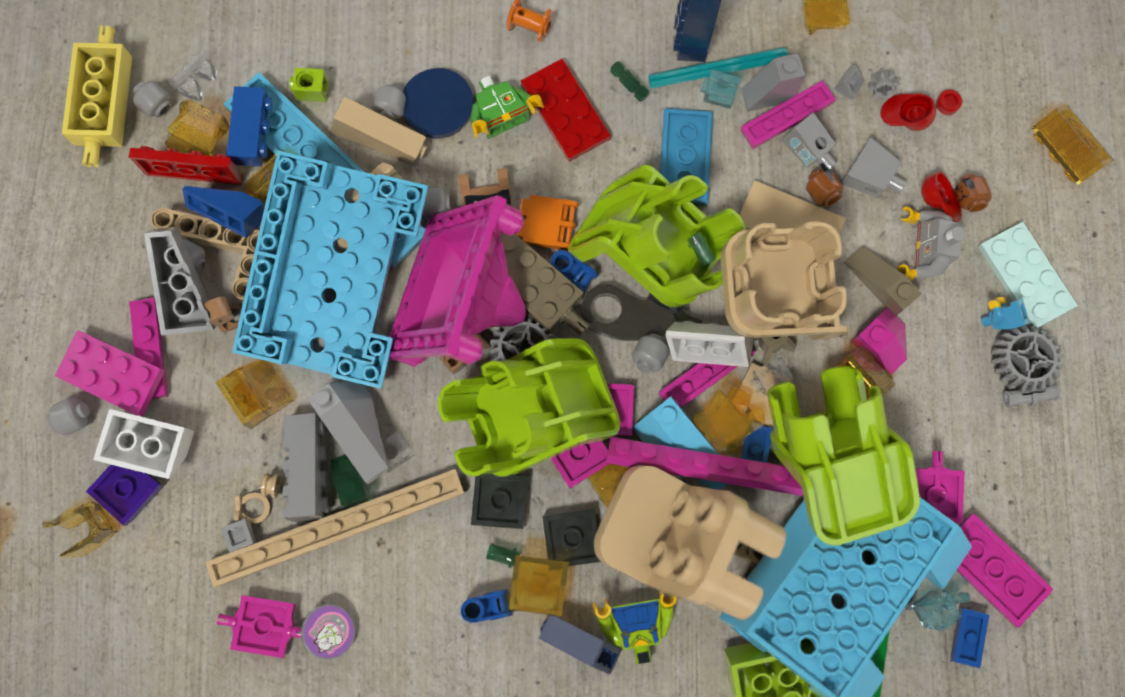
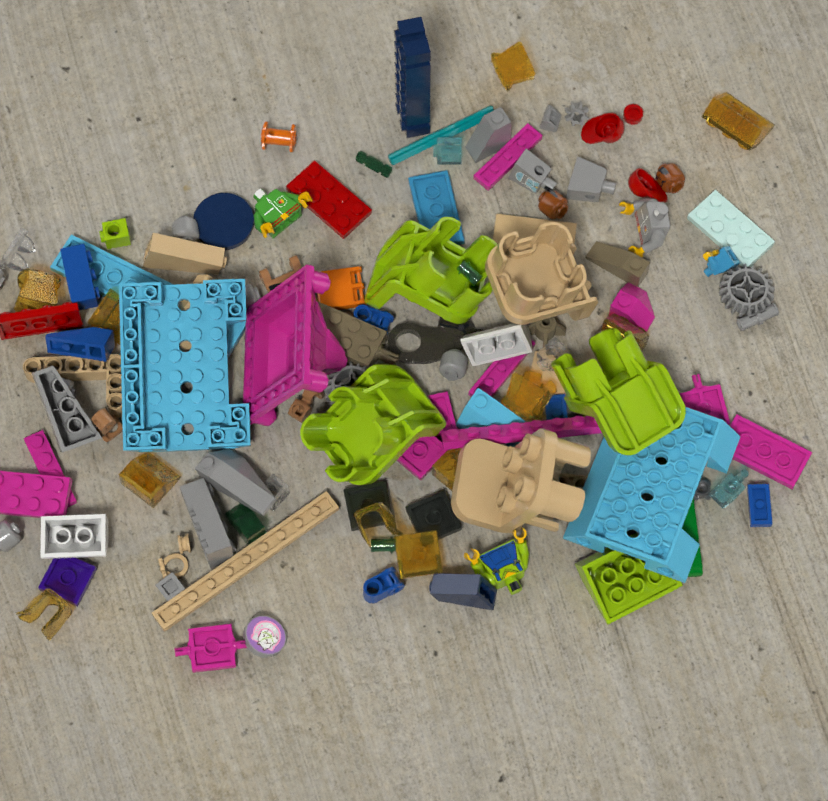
camera: 15 degrees left, 10 degrees down
(502, 516) = (386, 515): none -> clear yellow piece

